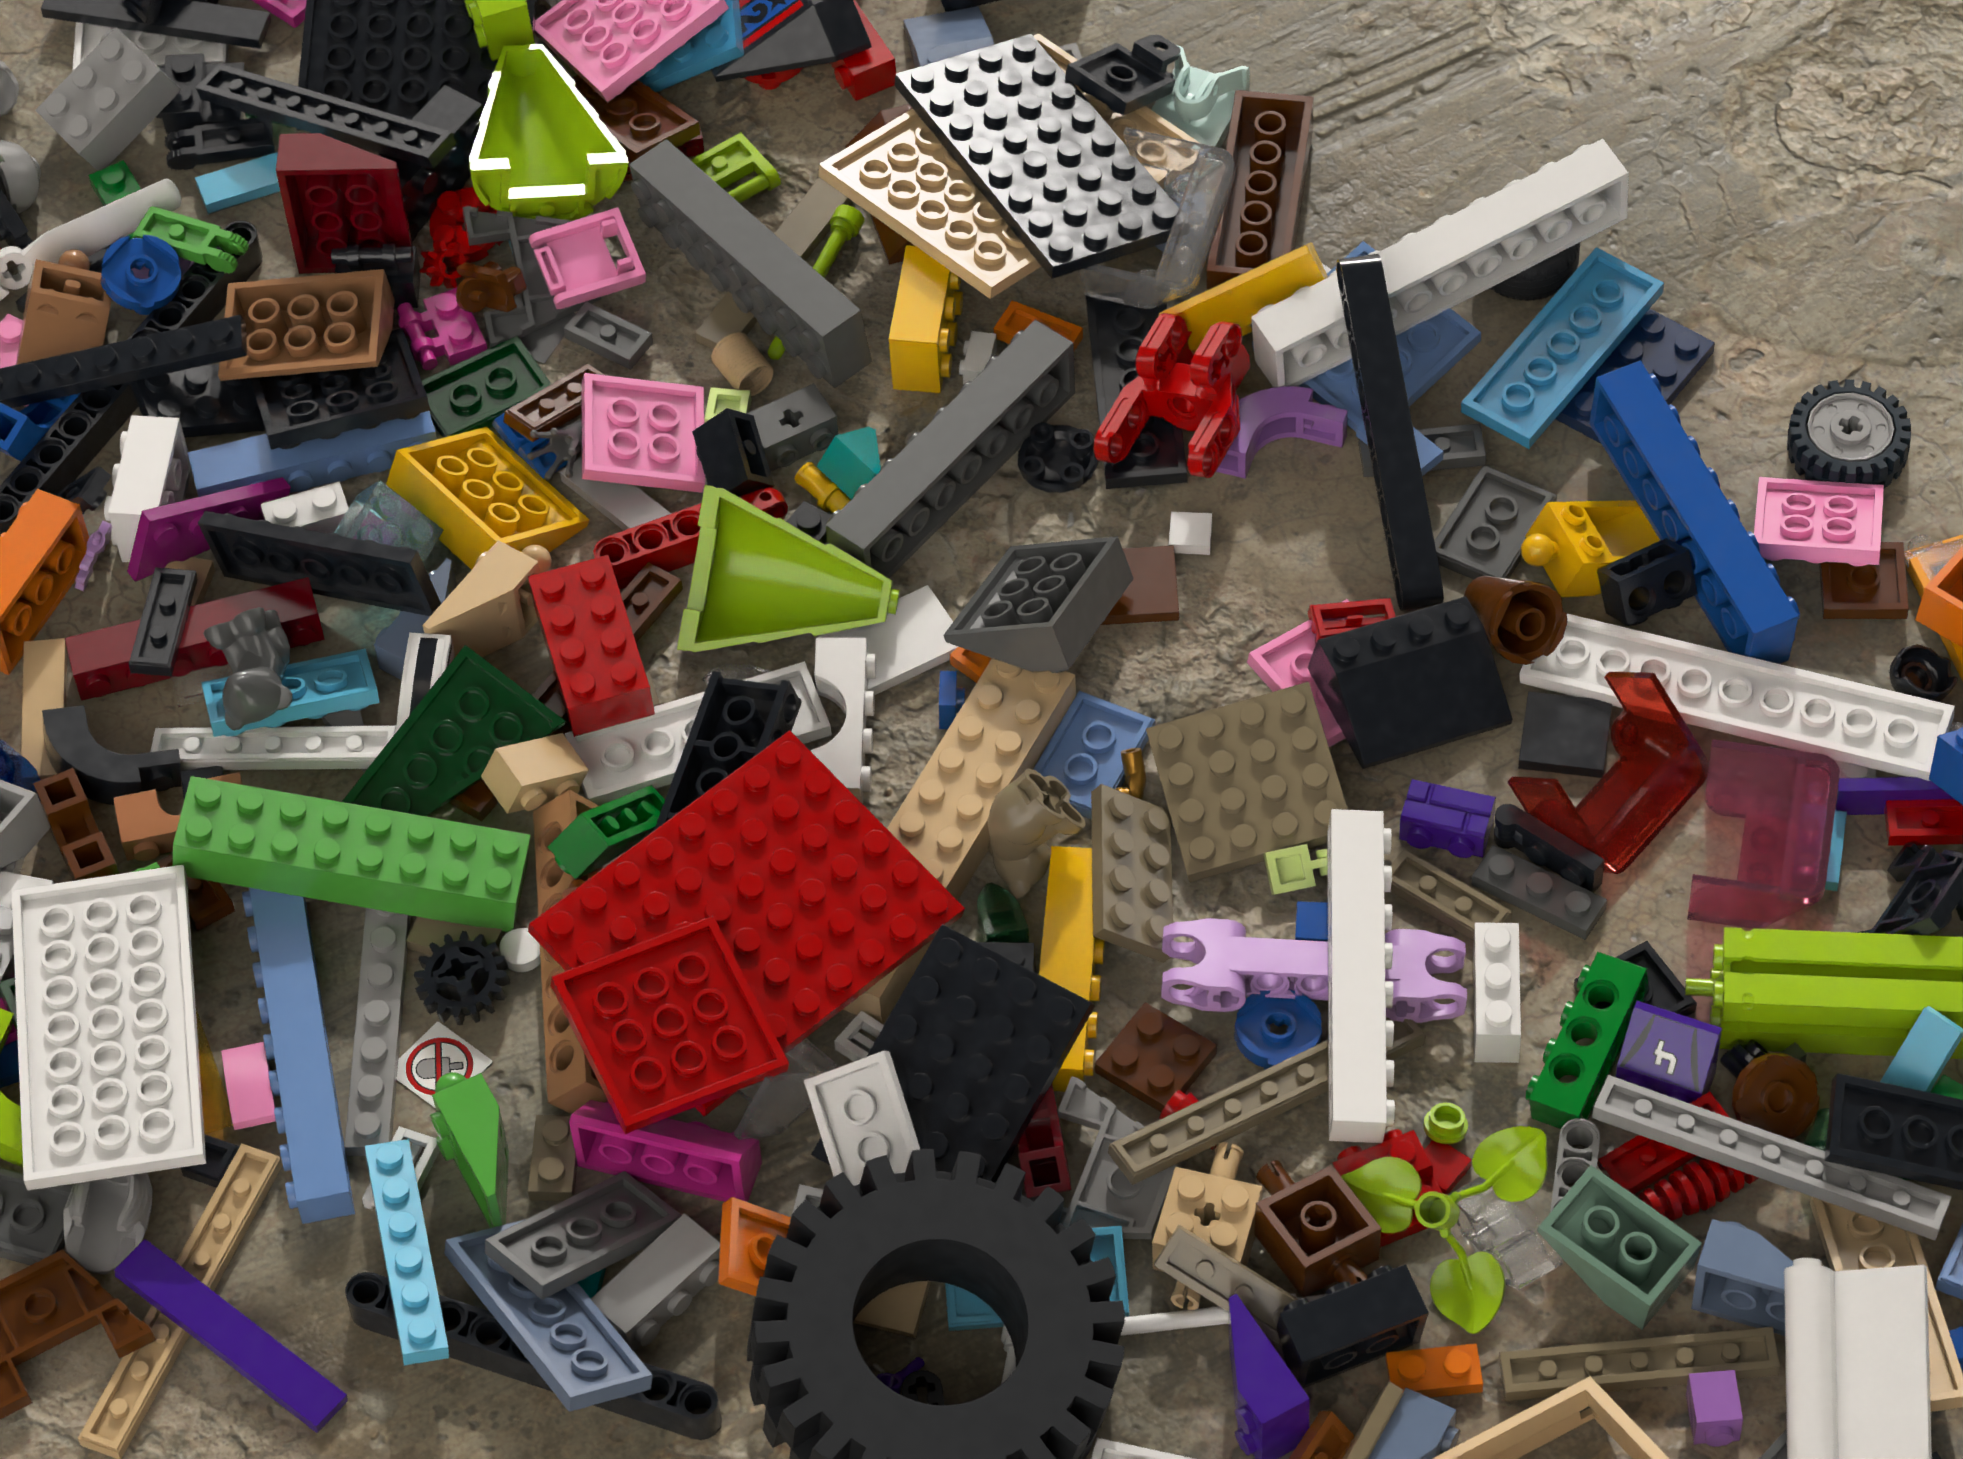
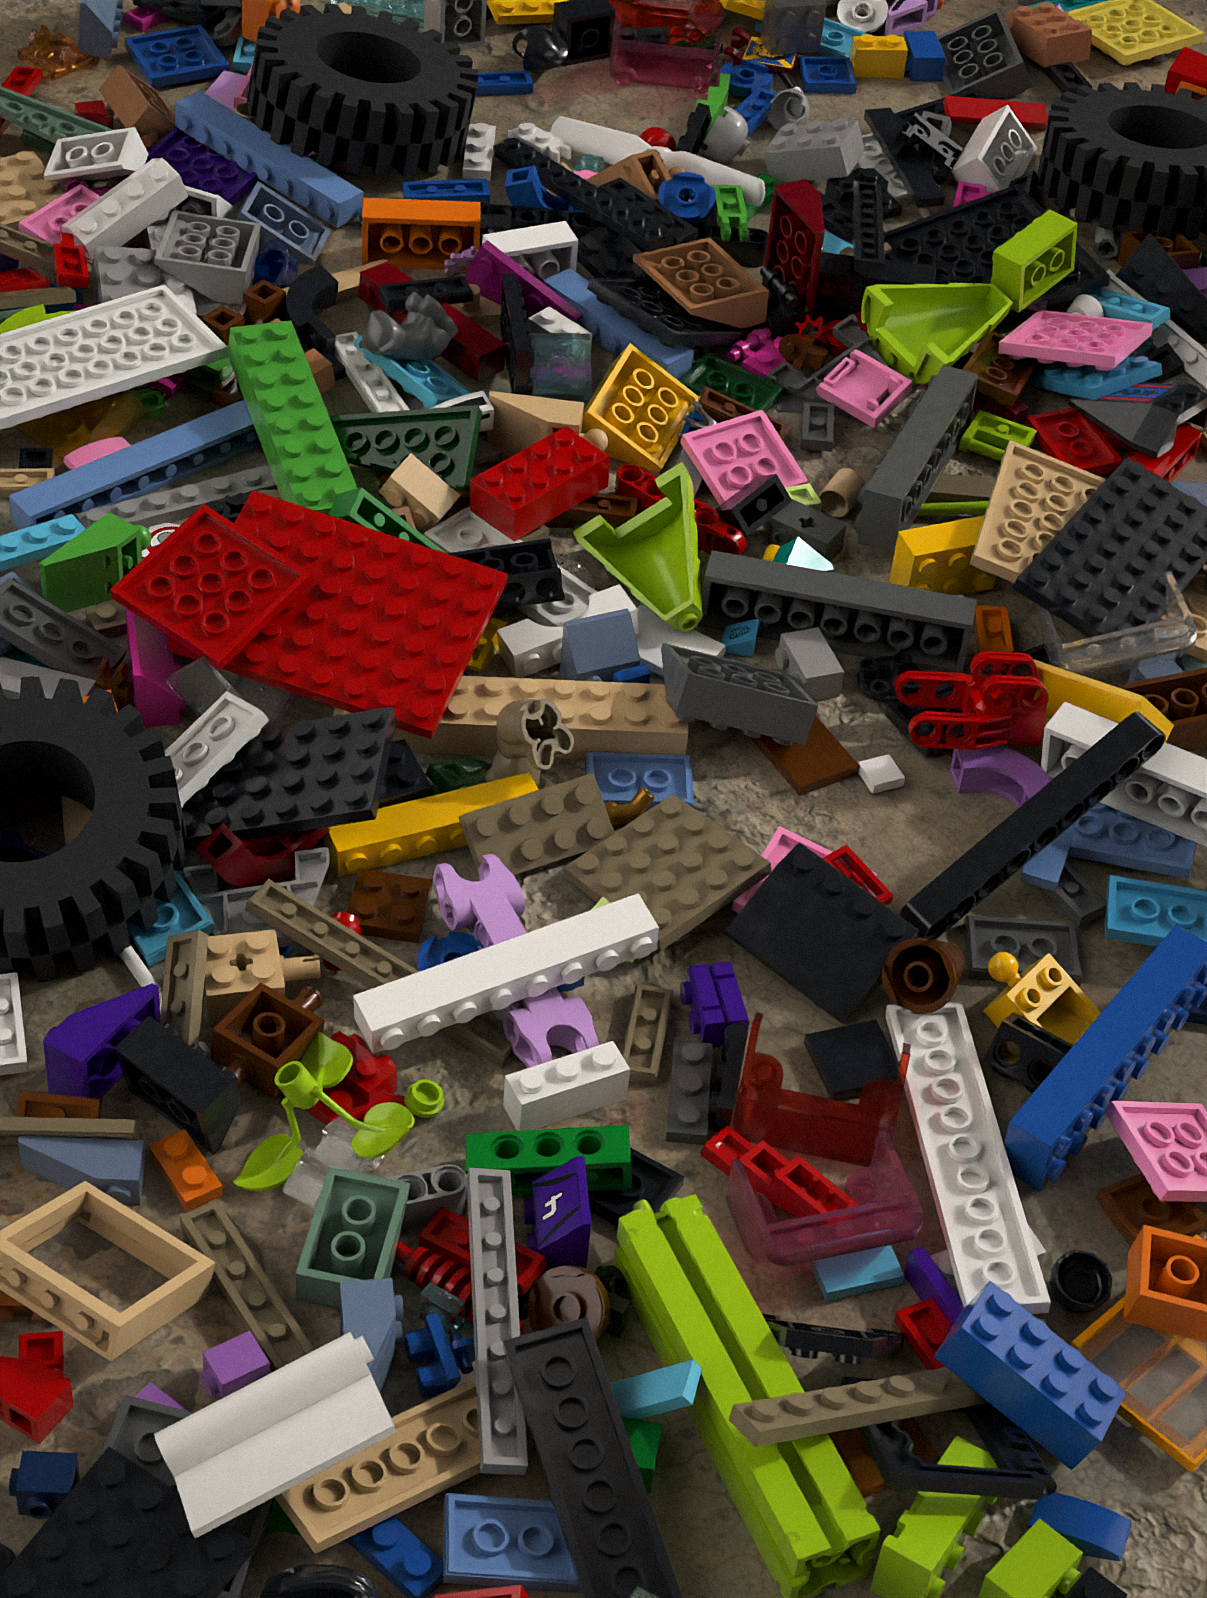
camera: 55 degrees right, 10 degrees down
(139, 320) = (634, 198): none -> black plate
(701, 1199) = (111, 679): none -> reddish brown plate
(776, 109) = (1074, 440): none -> red plate
(901, 708) = (598, 647): none -> sand blue slope
(920, 564) = (741, 638): none -> dark azure slope
(1002, 518) = (810, 663): none -> light grey brick
(1705, 851) = (789, 1185): none -> red slope
(1721, 1205) = (449, 1307): none -> clear light blue plate
(1782, 1225) = (446, 1357): none -> blue hips

